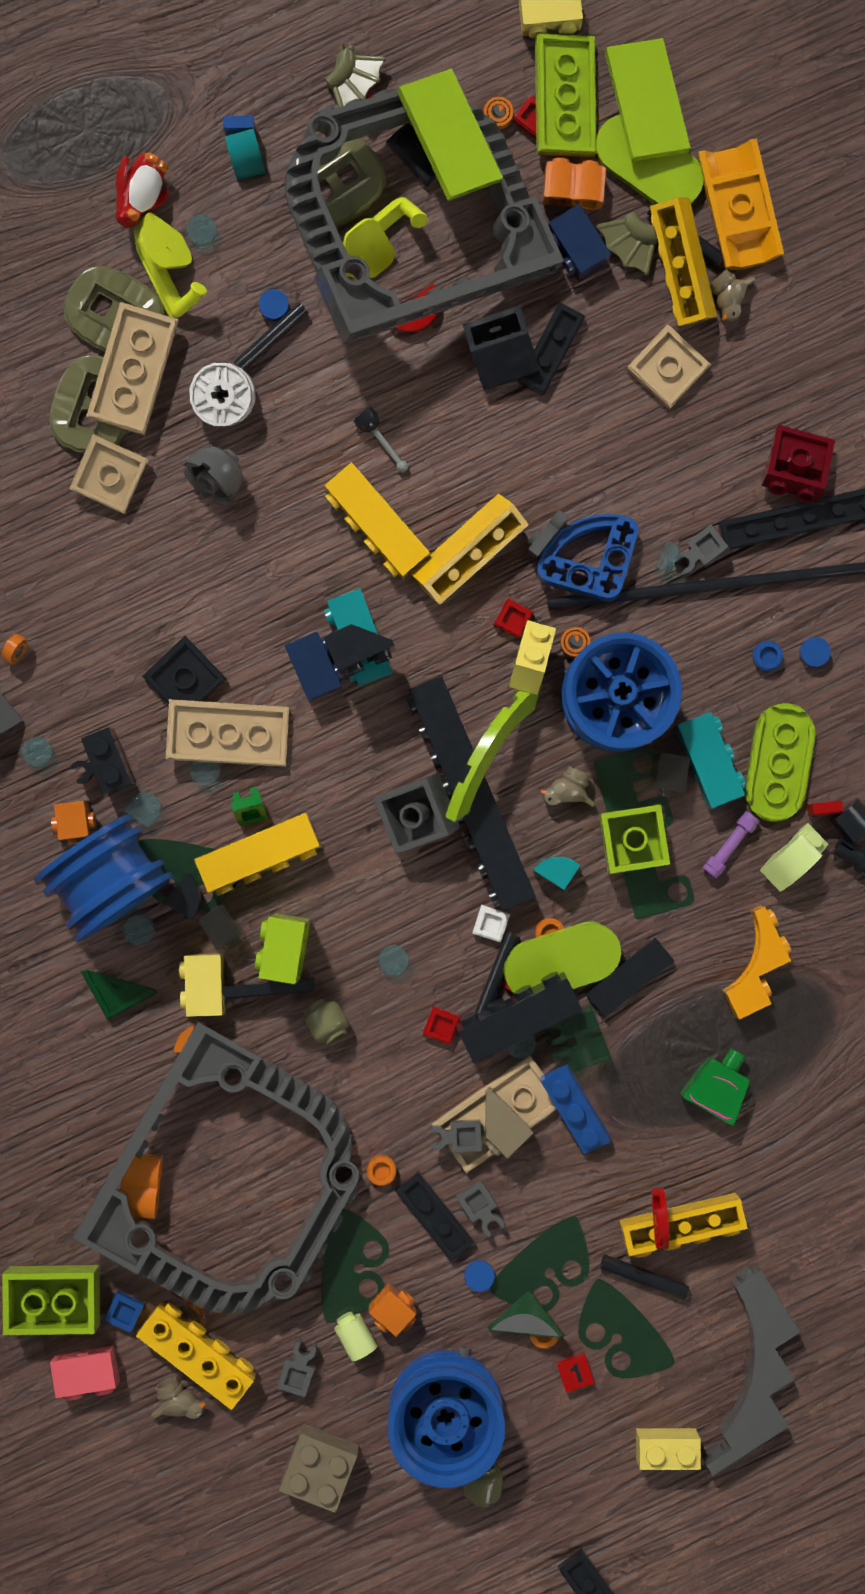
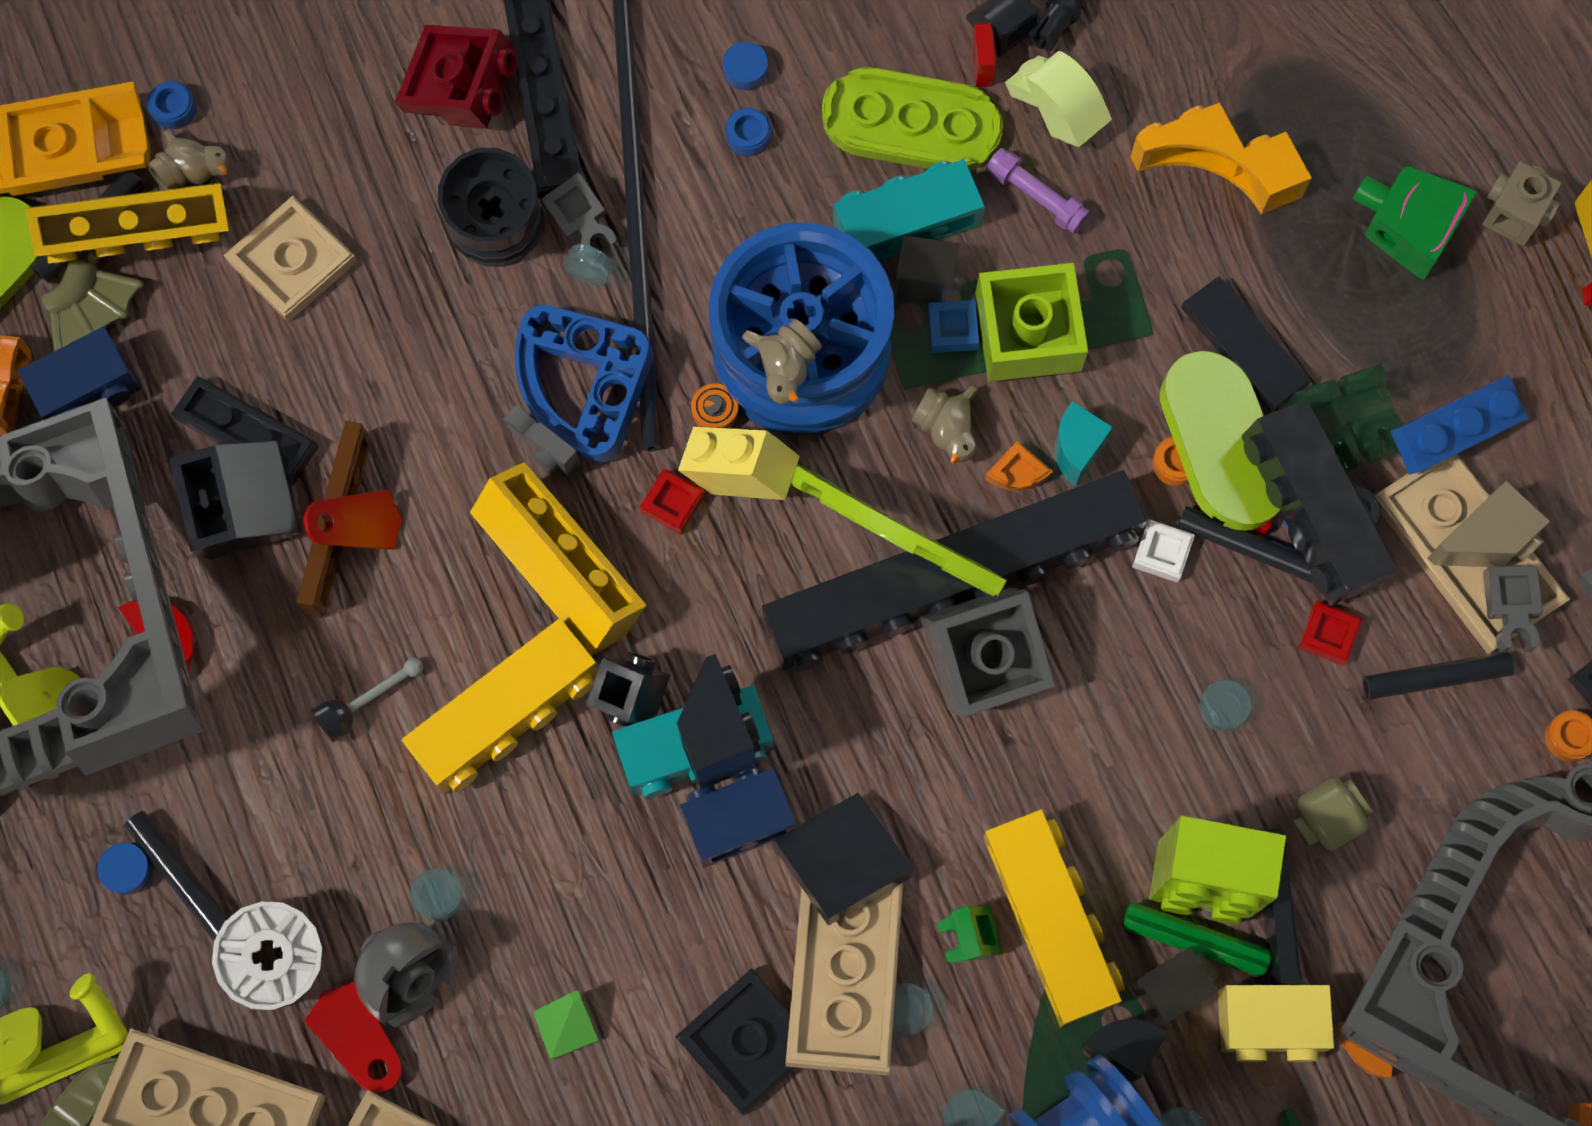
camera: 80 degrees left, 15 degrees down
(178, 448) = (354, 1037): none -> red piece
(190, 571) = (565, 1025): none -> bright green slope
(250, 940) = (1185, 934): none -> green axle
(264, 491) = (437, 894): none -> clear light blue tile
(290, 730) = (843, 858): none -> black tile
(387, 597) = (628, 689): none -> black brick
(416, 1089) = (1438, 675): none -> black piece
(488, 423) = (355, 521): none -> red piece
(492, 410) = (344, 481): none -> reddish brown tile
(540, 833) = (1018, 470): none -> orange tile
(584, 680) = (785, 358): none -> dark tan animal
(635, 791) = (953, 326): none -> blue tile
(698, 474) = (482, 185): none -> black wheel
(722, 1149) = (1522, 202): none -> dark tan brick
(774, 279) = (171, 105): none -> blue tile

